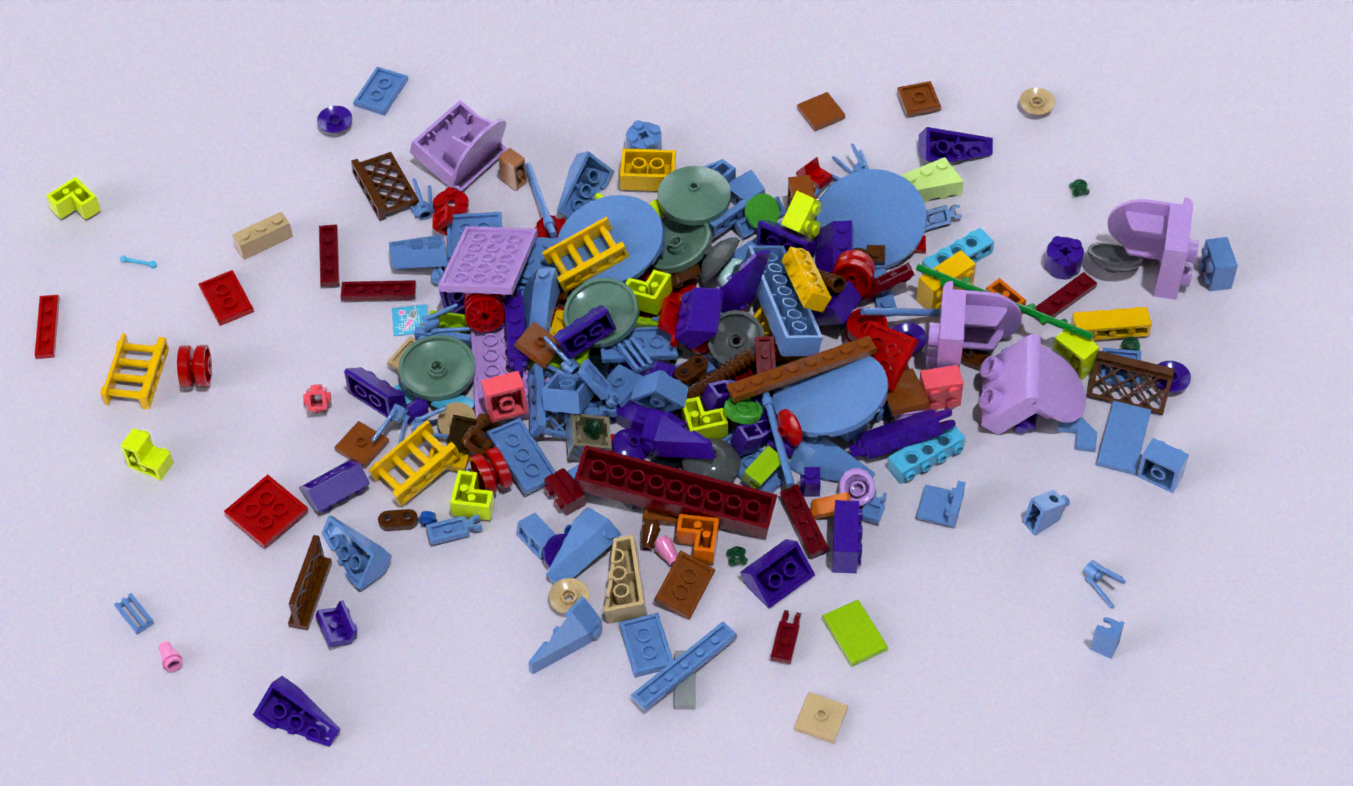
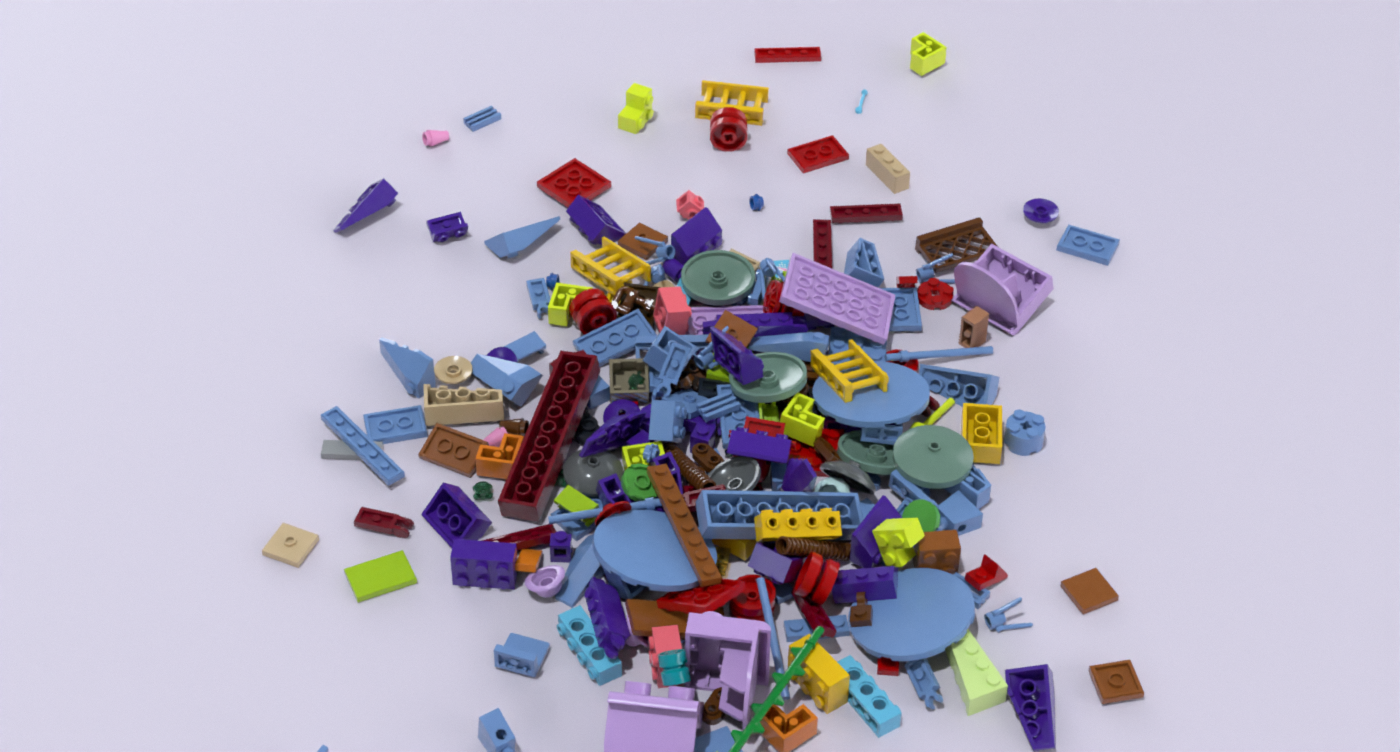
camera: 90 degrees right, 10 degrees down
(306, 346) = (756, 202): none -> blue plate
(309, 586) = (486, 213): reddish brown fence -> none
(397, 520) = (556, 263): reddish brown plate -> none
(706, 402) = (650, 452): none -> medium blue plate
(874, 509) = (523, 597): medium blue plate -> none
(973, 368) = (674, 667): none -> teal wheel

